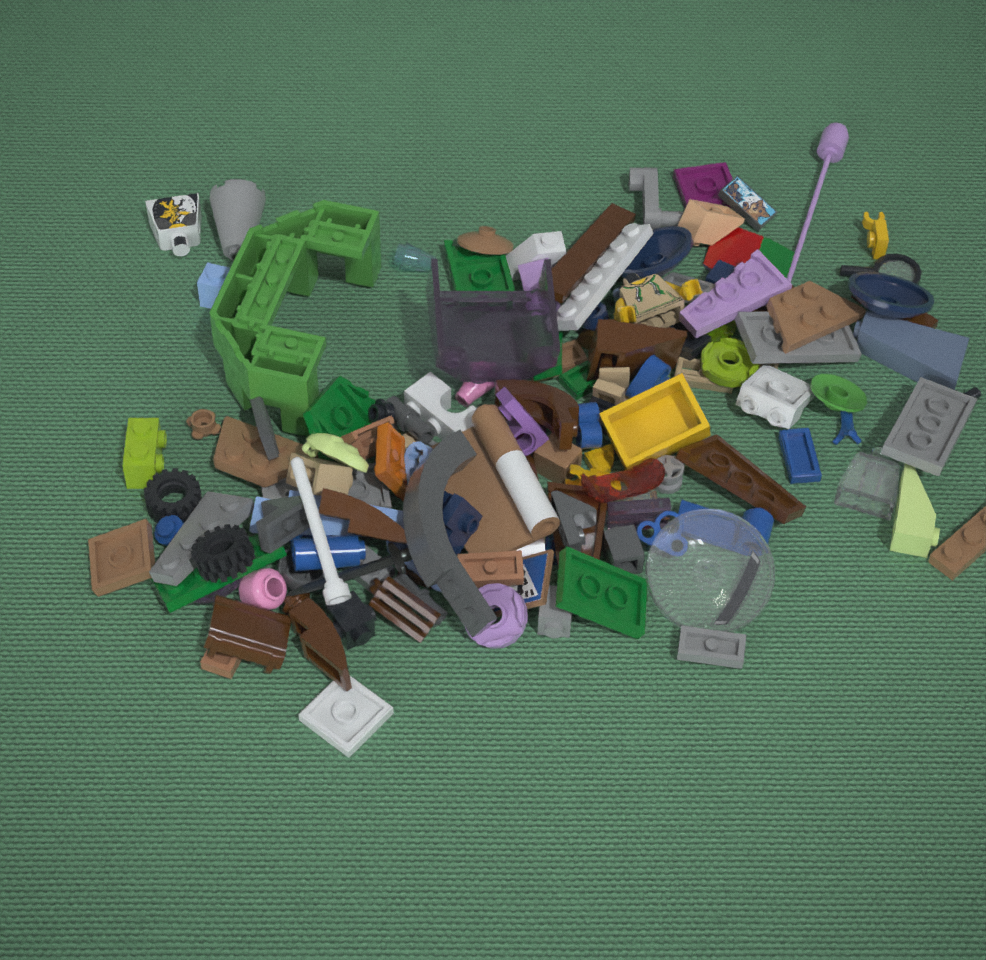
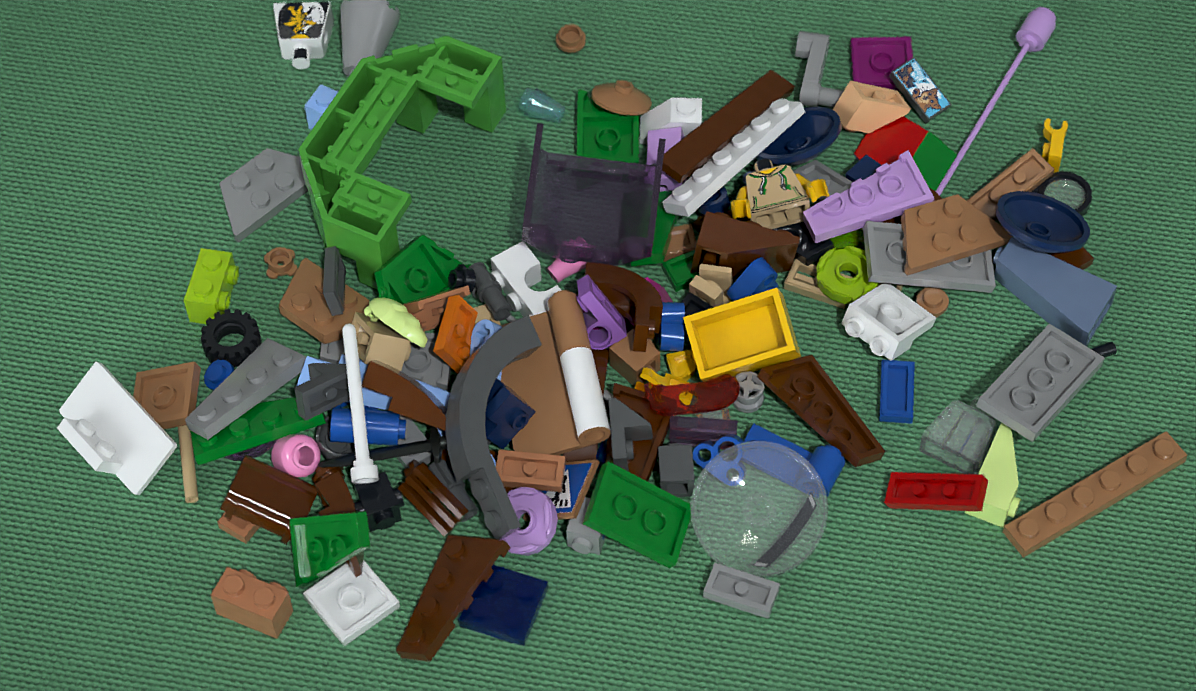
camera: 15 degrees right, 5 degrees up
(81, 592) = (114, 430): none -> white bracket
(156, 615) = (188, 465): none -> tan piece
(171, 363) = (261, 190): none -> light grey wing
(223, 553) = (258, 413): black tyre -> none
(252, 729) = (252, 601): none -> nougat brick
(316, 660) = (326, 543): none -> green wing
(424, 200) = (570, 38): none -> medium nougat plate
(438, 690) = (448, 592): none -> reddish brown wing
(492, 694) = (505, 606): none -> clear blue plate
(807, 371) = (933, 300): none -> medium nougat plate
(838, 393) = (956, 327): bright green dish -> none
(847, 428) = (957, 367): blue bar -> none
(860, 258) = (1022, 175): none -> medium nougat tile
(865, 532) = (936, 491): none -> red plate

